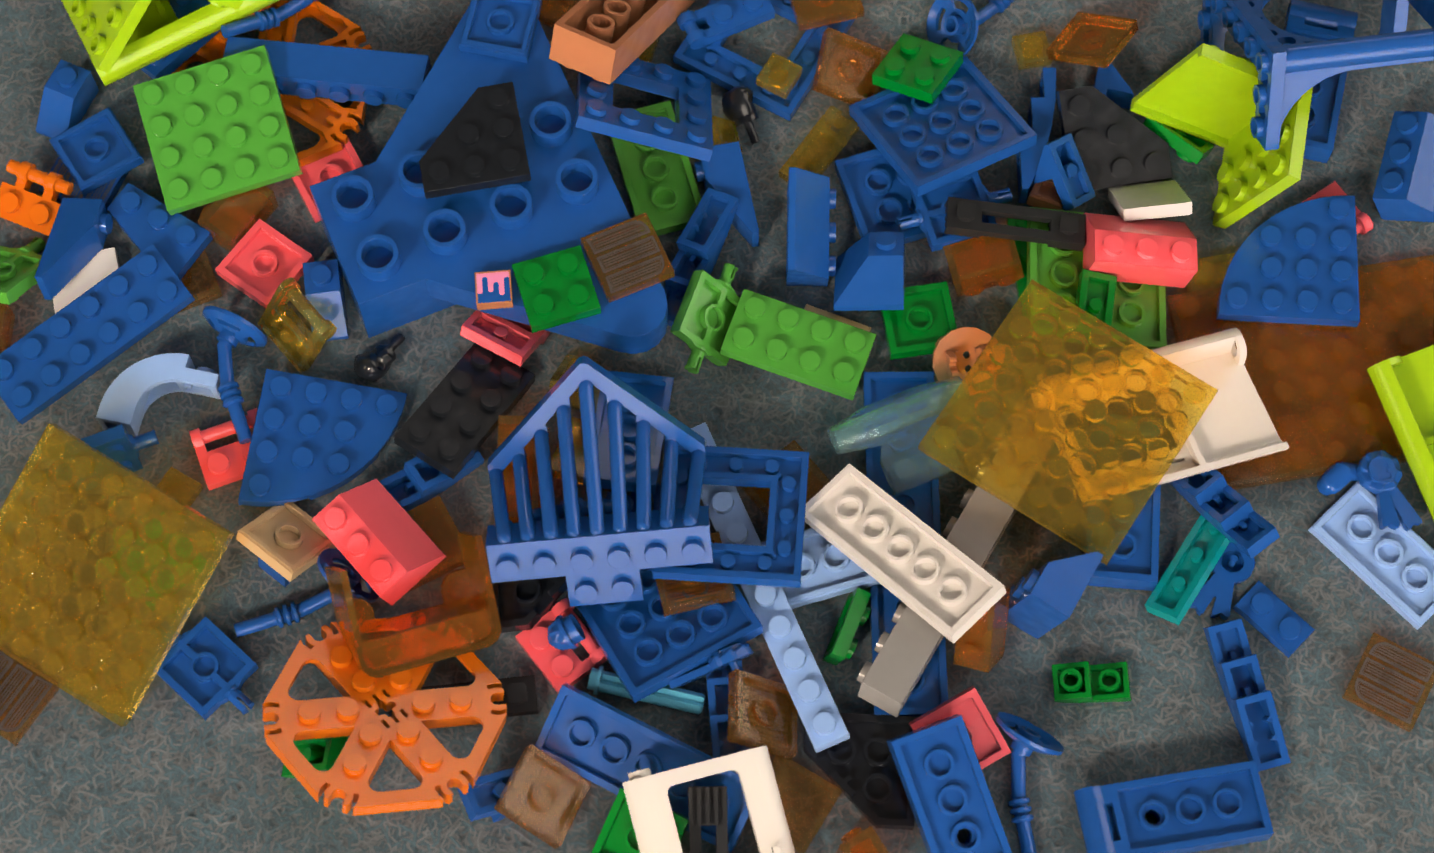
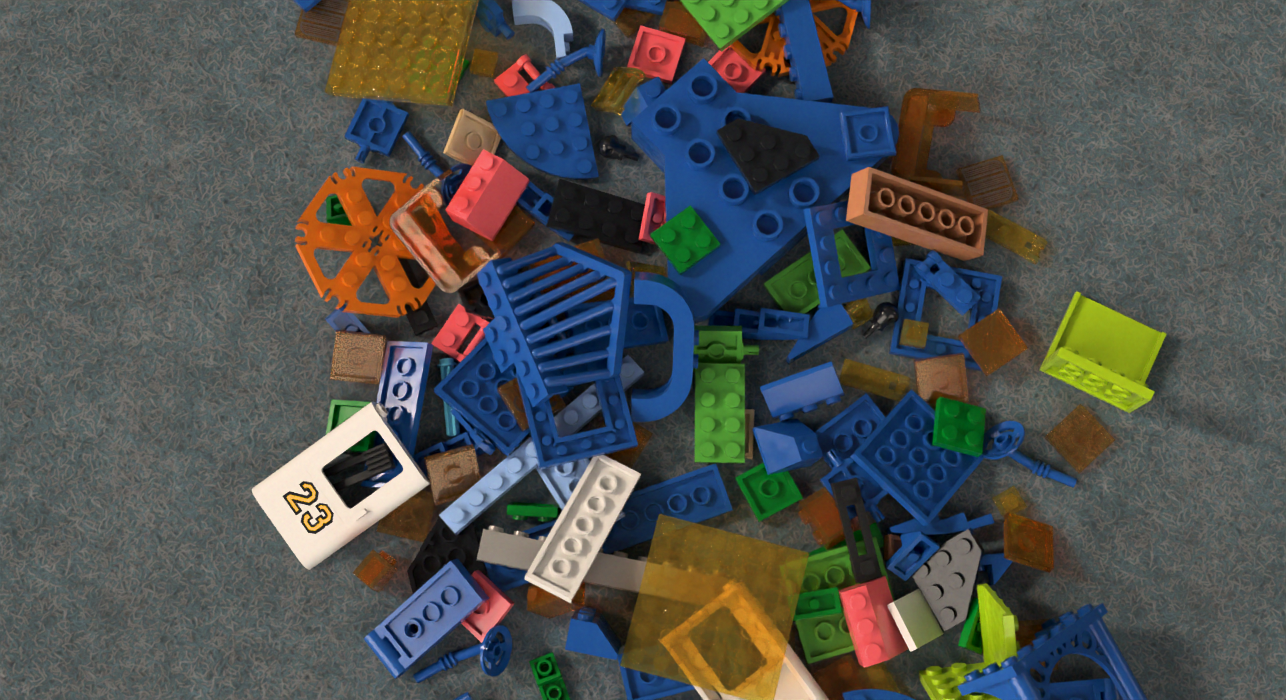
camera: 70 degrees right, 10 degrees up
(493, 290) = (669, 200): tile -> none
(565, 632) = (466, 333): blue plate -> none
(627, 257) = (724, 277): tile -> none
(687, 334) = (662, 401): none -> blue arch
(898, 427) = (678, 498): clear light blue plate -> none
(949, 350) = (746, 516): nougat plate -> none

